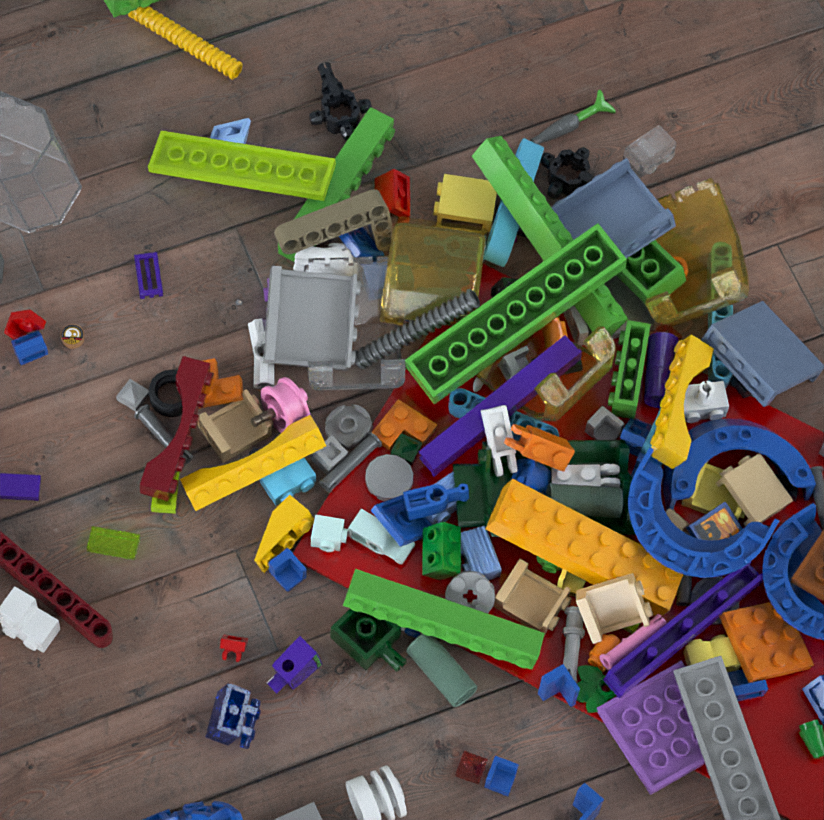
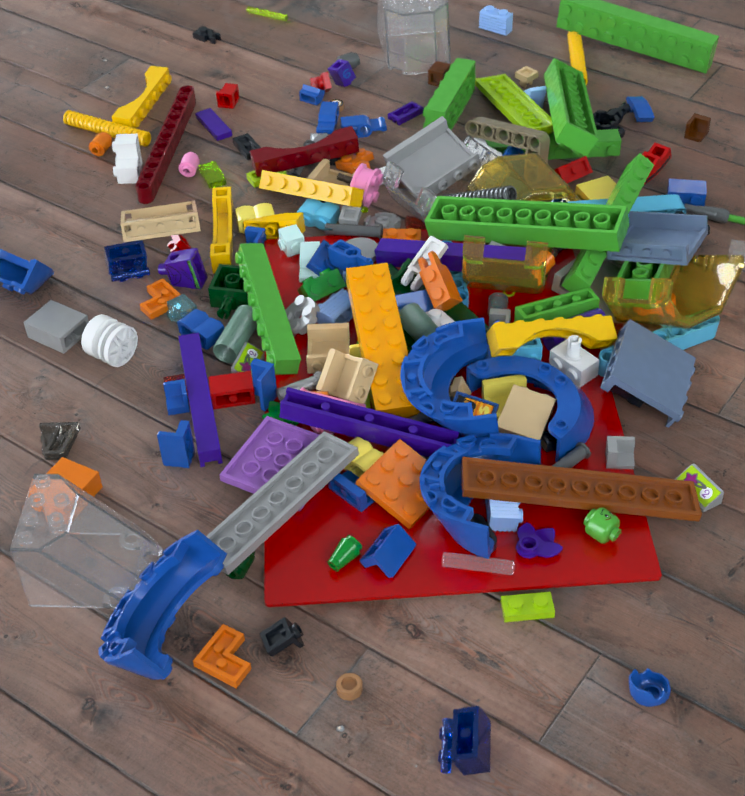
camera: 65 degrees right, 20 degrees down
(22, 292) = (342, 73): none -> dark purple brick
(38, 63) = (496, 20): none -> light blue brick
(80, 557) = (189, 164): none -> bright pink brick
(89, 476) = (244, 144): none -> black plate
(101, 361) = (328, 117): none -> blue piece
(105, 193) = (437, 72): none -> reddish brown panel
(146, 336) = (363, 124): none -> blue piece
(181, 220) = (452, 93): none -> bright green brick
(185, 113) = (526, 76): none -> tan tile
(227, 658) = (159, 221): none -> tan window
(243, 545) = (249, 212): none -> light yellow brick
(281, 608) = (222, 243): none -> yellow arch
(314, 126) = (570, 108): none -> bright green brick
(325, 707) = (161, 293): none -> orange plate
(336, 53) = (641, 109): none -> blue slope
(360, 702) = (180, 307): none -> clear light blue brick
(375, 398) = (413, 222): none -> clear red tile
(404, 698) = (199, 322): none -> blue brick
(411, 32) = (697, 127): none -> reddish brown panel
(442, 121) = (659, 156): none -> red slope
(488, 682) = (245, 357): none -> slope
(515, 123) = (690, 191): none -> brick
(523, 718) = (231, 390): none -> red brick
(532, 759) = (200, 399): none -> dark purple tile
(580, 413) = (498, 301): none -> clear light blue brick

